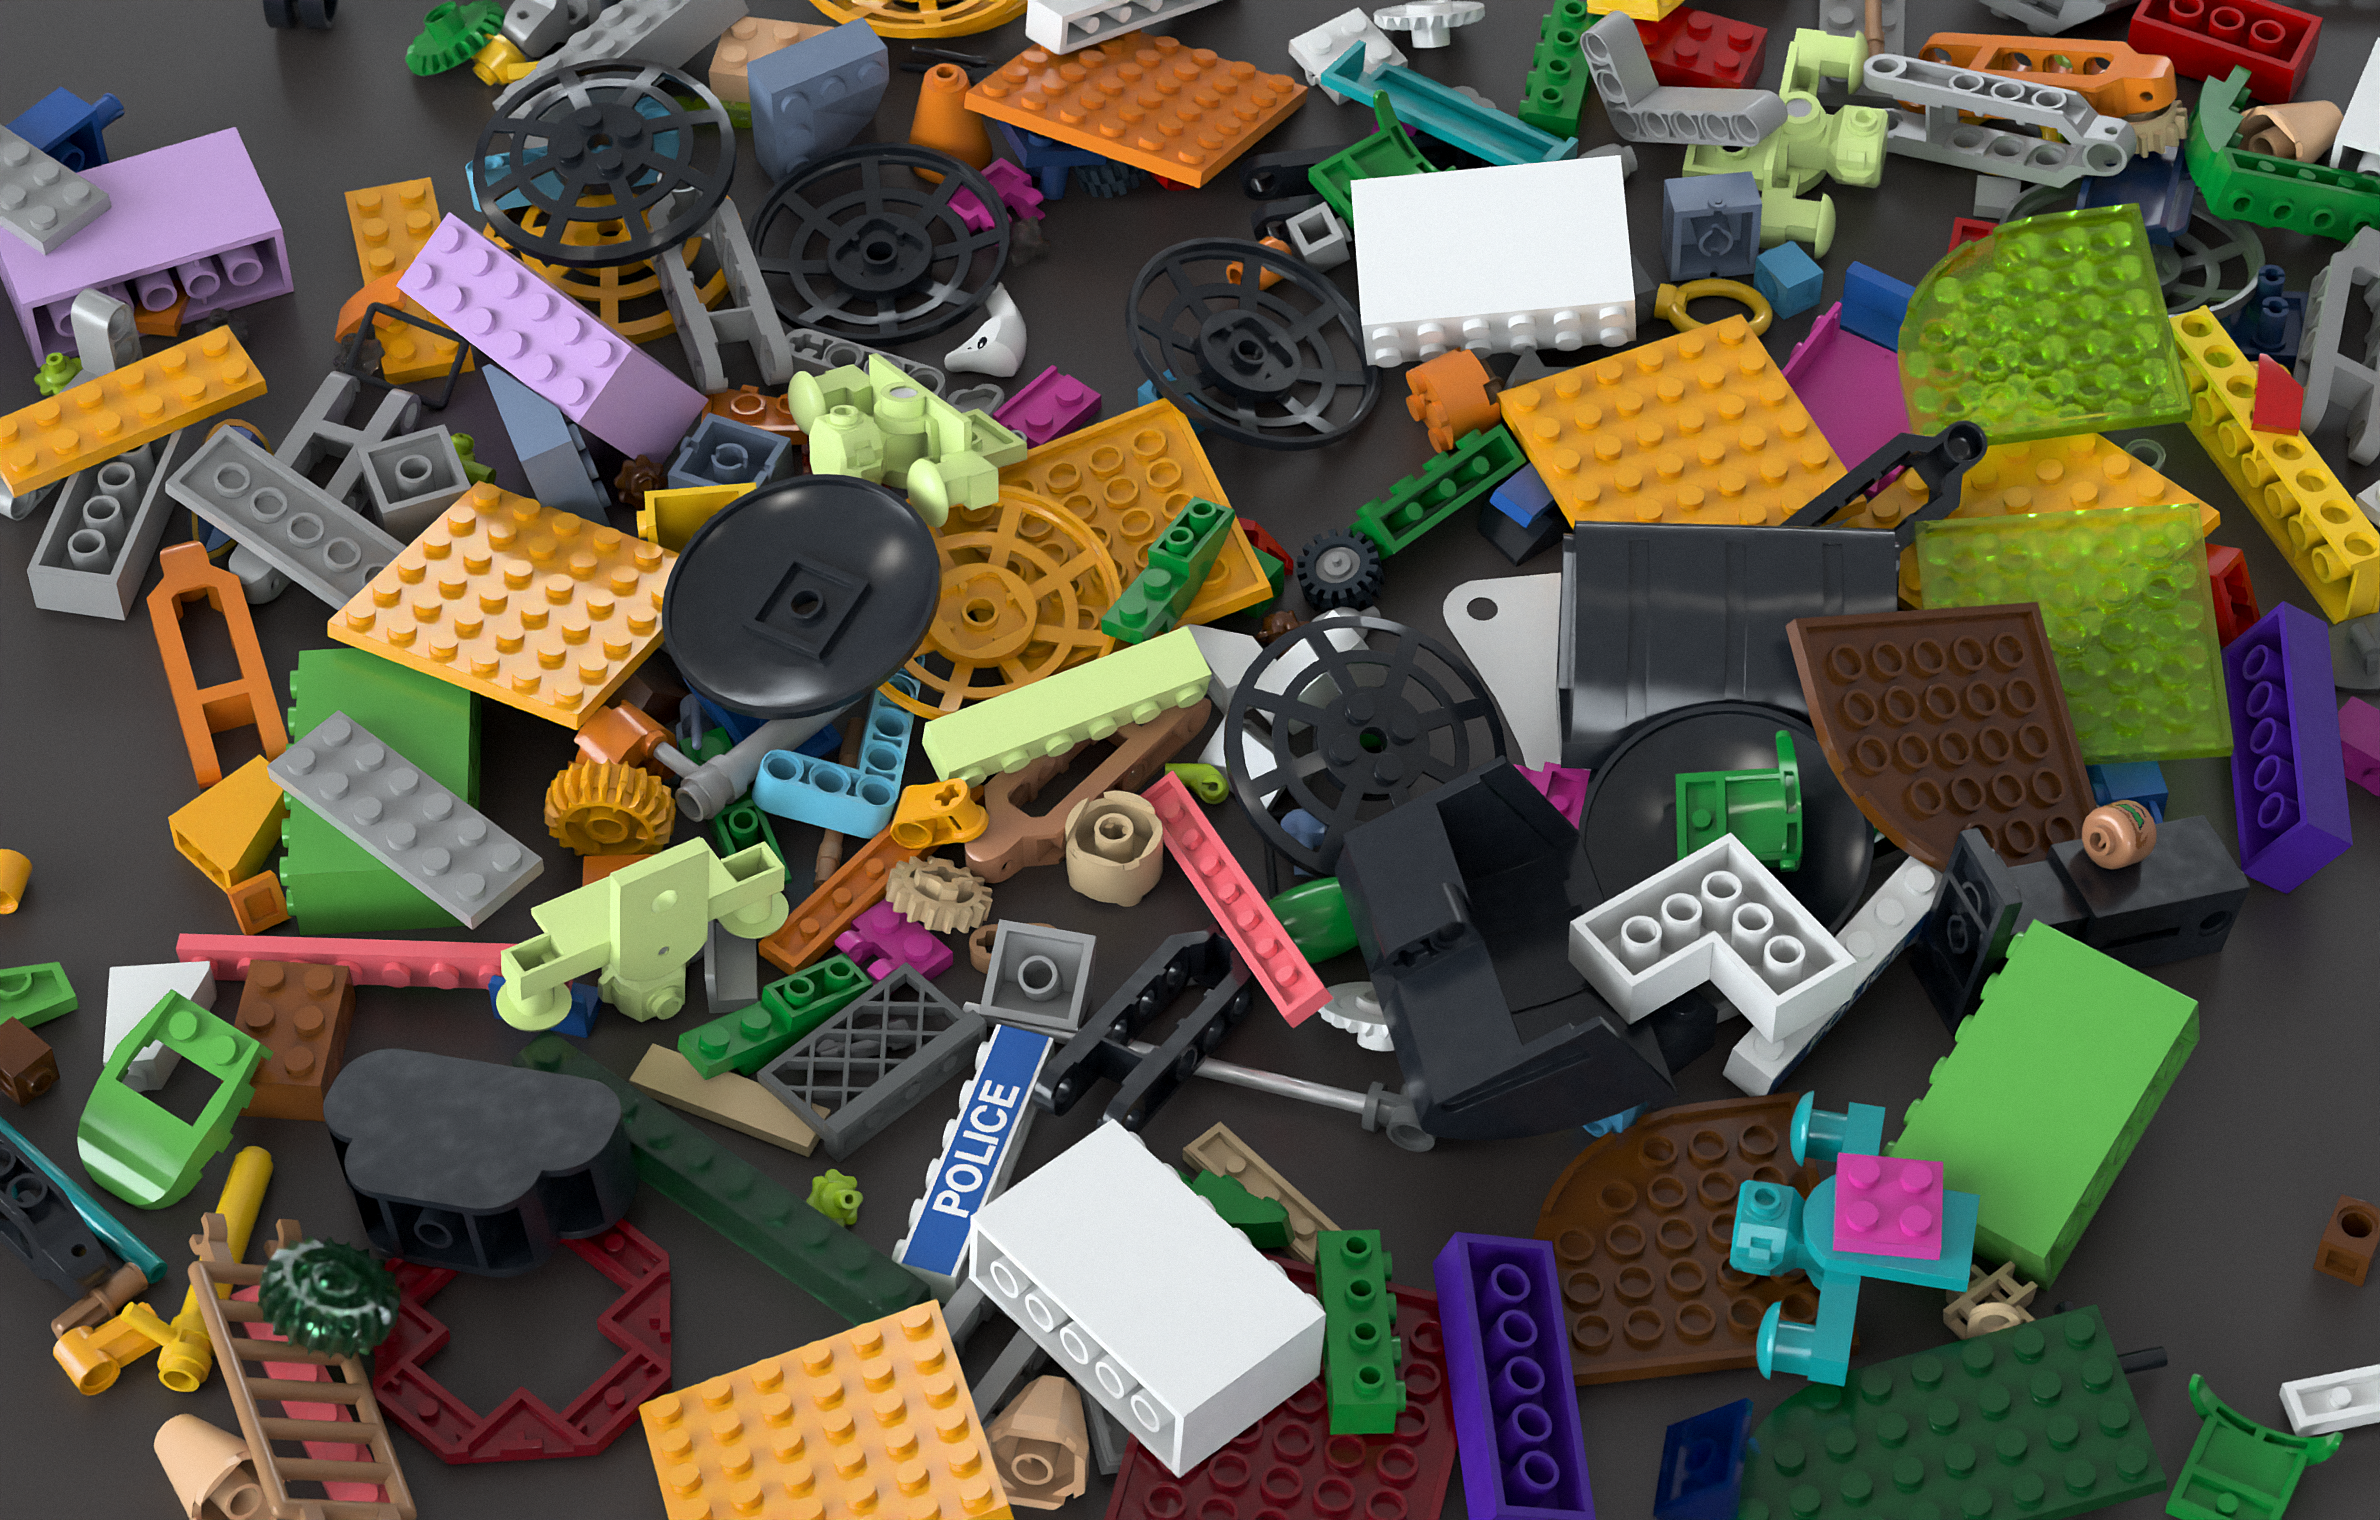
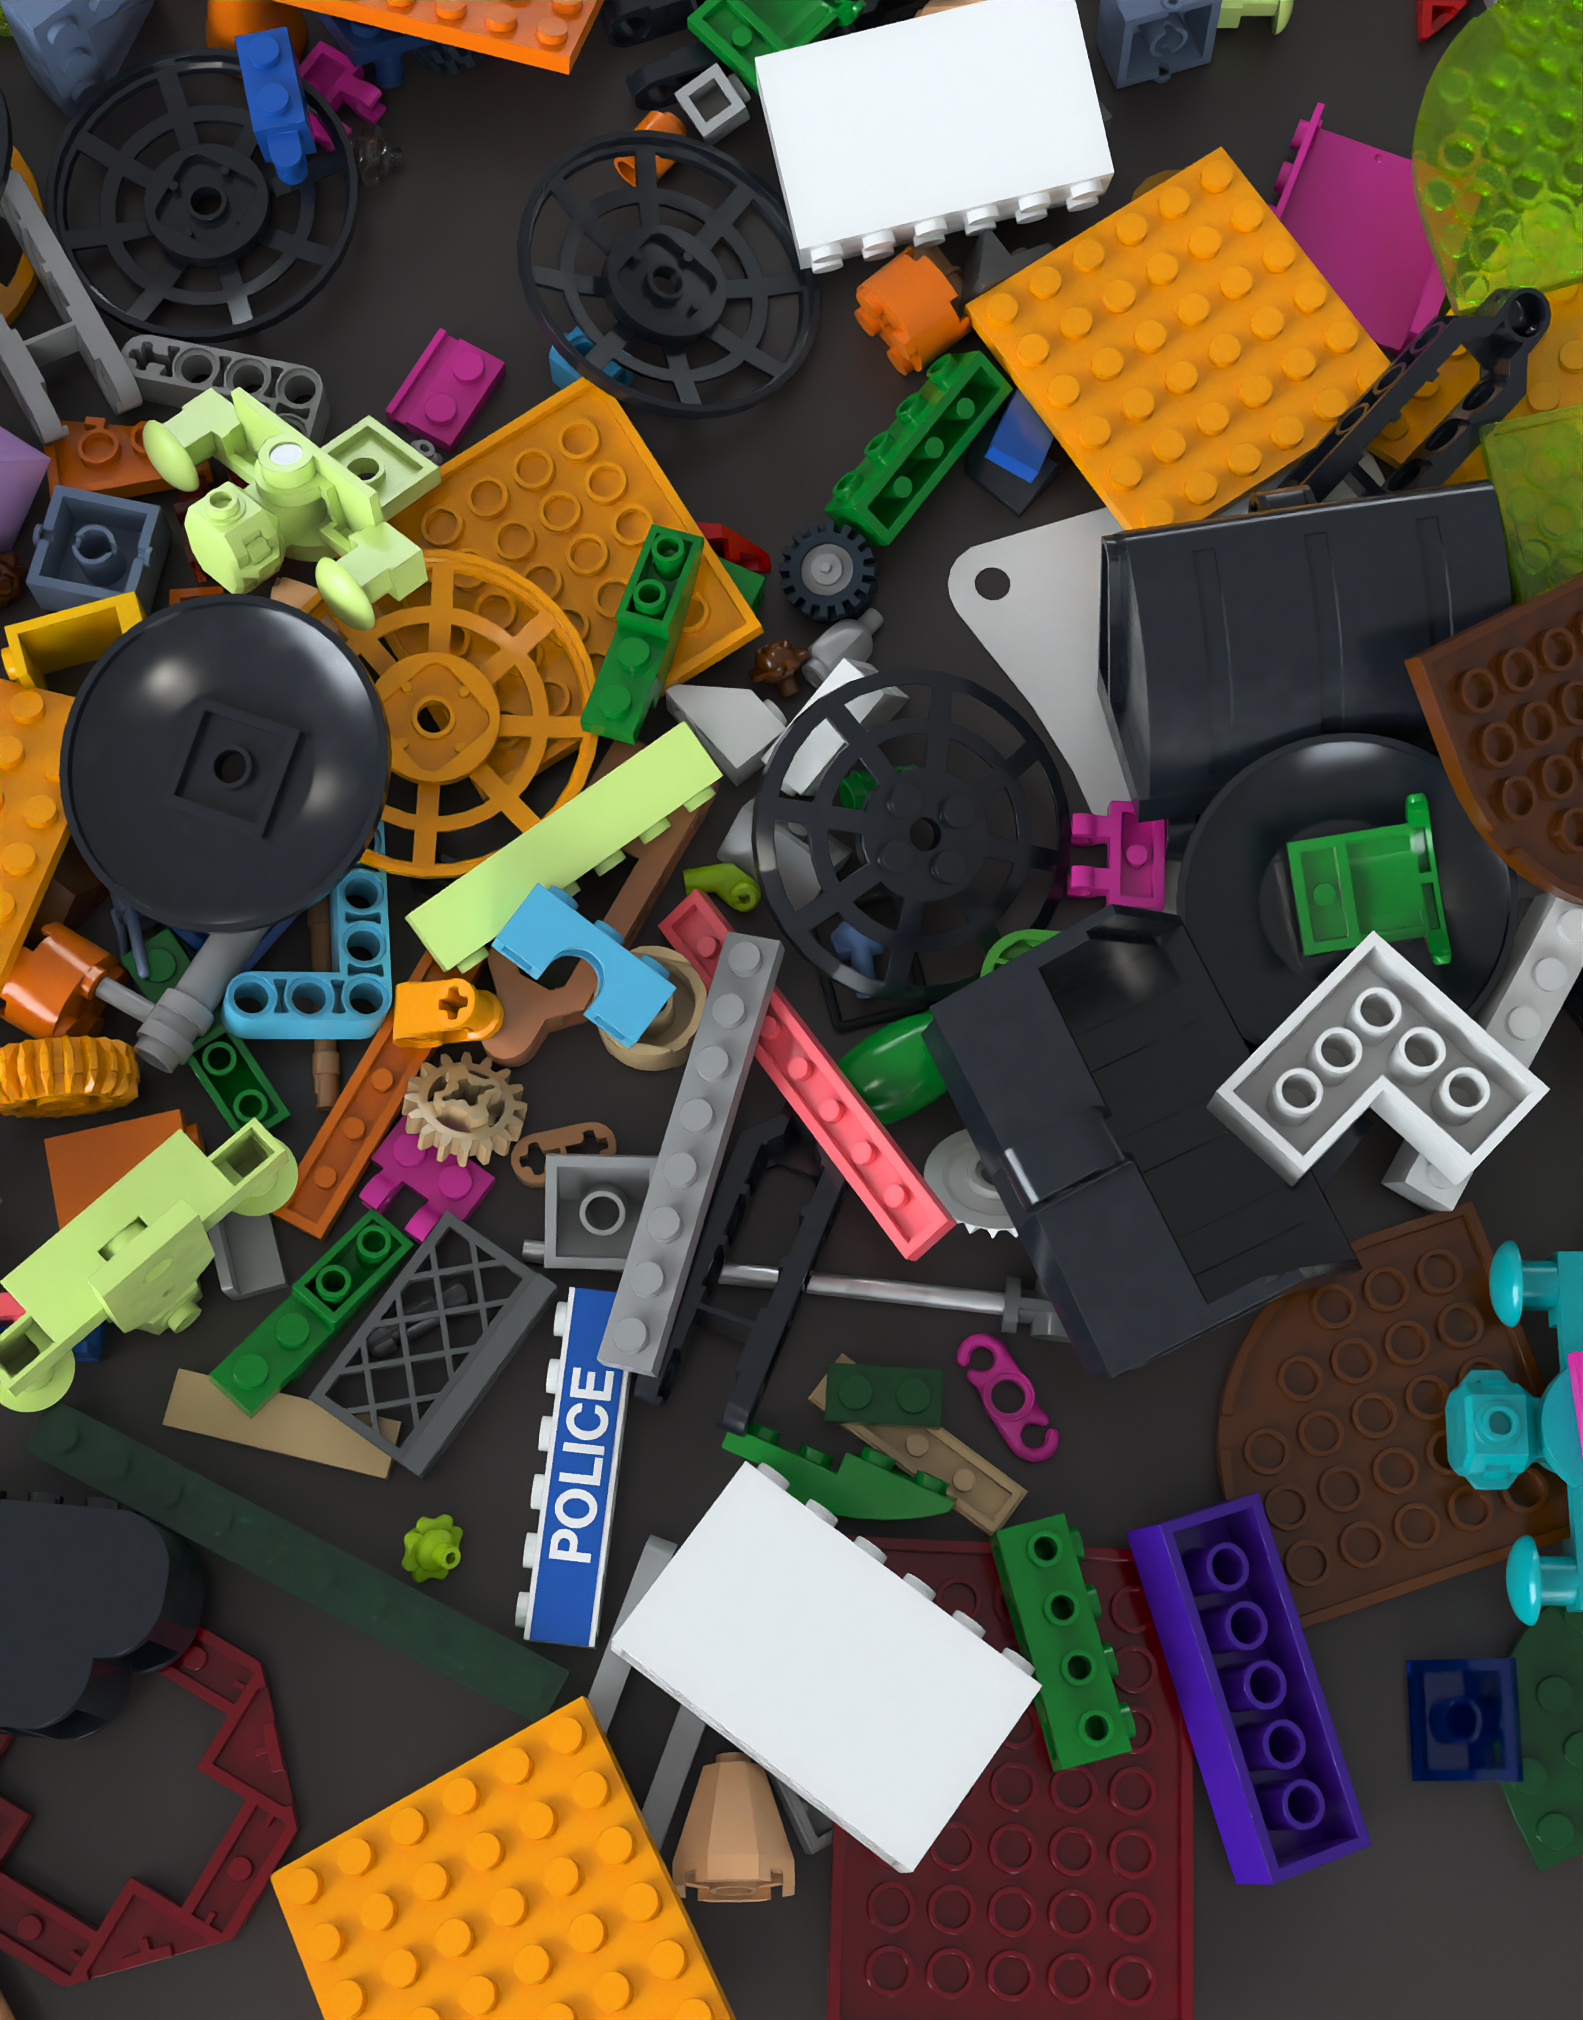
camera: 15 degrees left, 25 degrees up
(955, 179) = (277, 101): none -> blue brick
(983, 397) = (363, 396): light grey tile -> none
(997, 345) = (375, 308): white animal -> none
(1041, 749) = (628, 987): none -> medium azure arch
(1121, 933) = (691, 1155): none -> light grey plate
(1247, 1151) = (883, 1396): none -> dark green plate
(1354, 1196) = (1008, 1424): none -> dark pink piece
(1672, 302) = (1129, 123): yellow piece -> none
(1788, 279) = (1250, 71): dark azure brick -> none
(1874, 305) = (1361, 96): blue panel -> none

